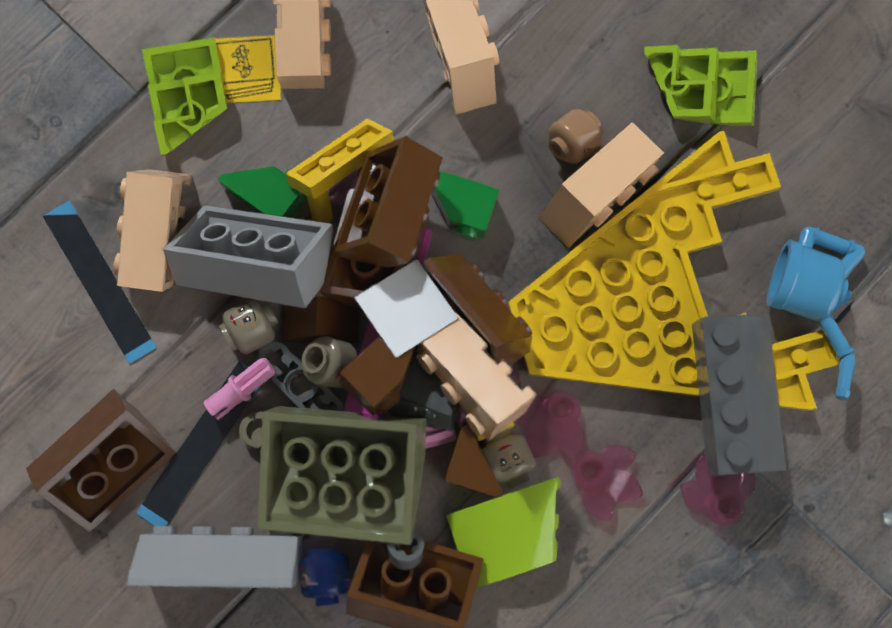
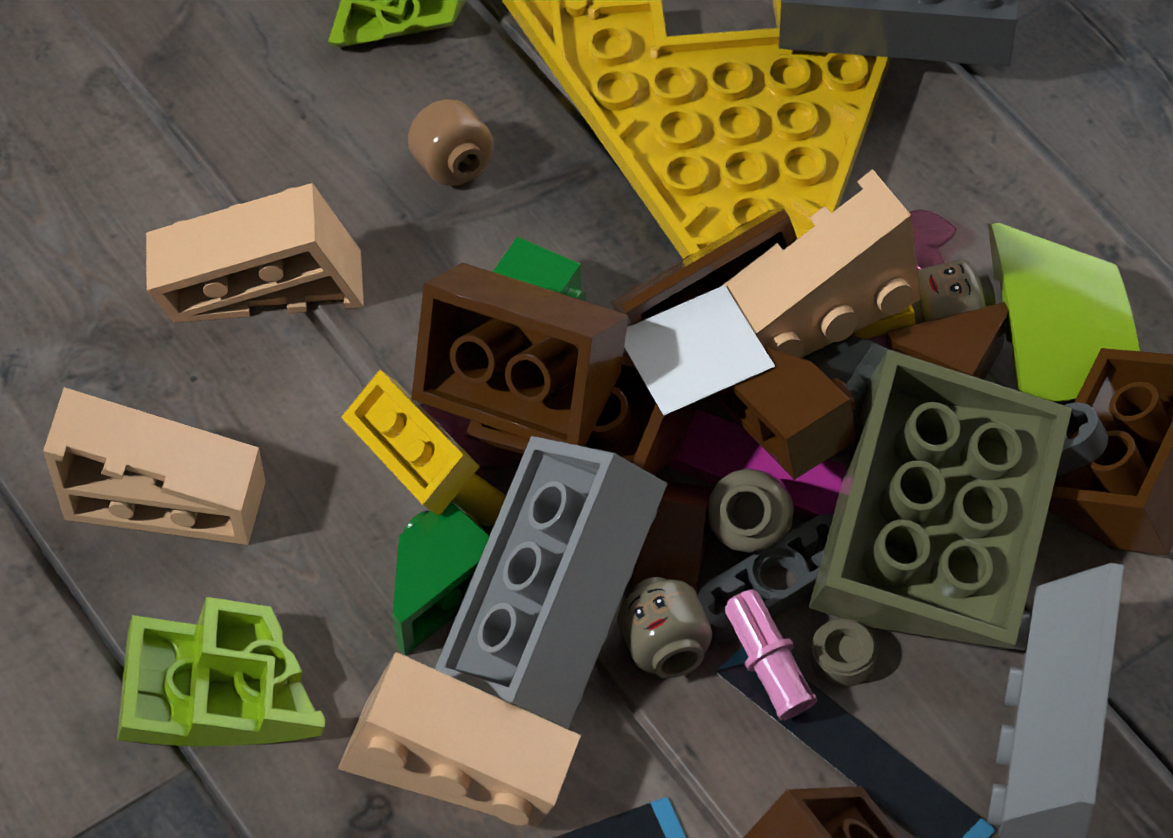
camera: 75 degrees left, 25 degrees down
(249, 68) = (185, 571): yellow sticker -> none
(324, 575) = (1098, 548): clear blue head -> none
(600, 184) = (545, 118): light nougat wedge -> none
(610, 482) = (998, 193): clear pink plate -> none
(707, 492) = (1037, 69): clear pink plate -> none

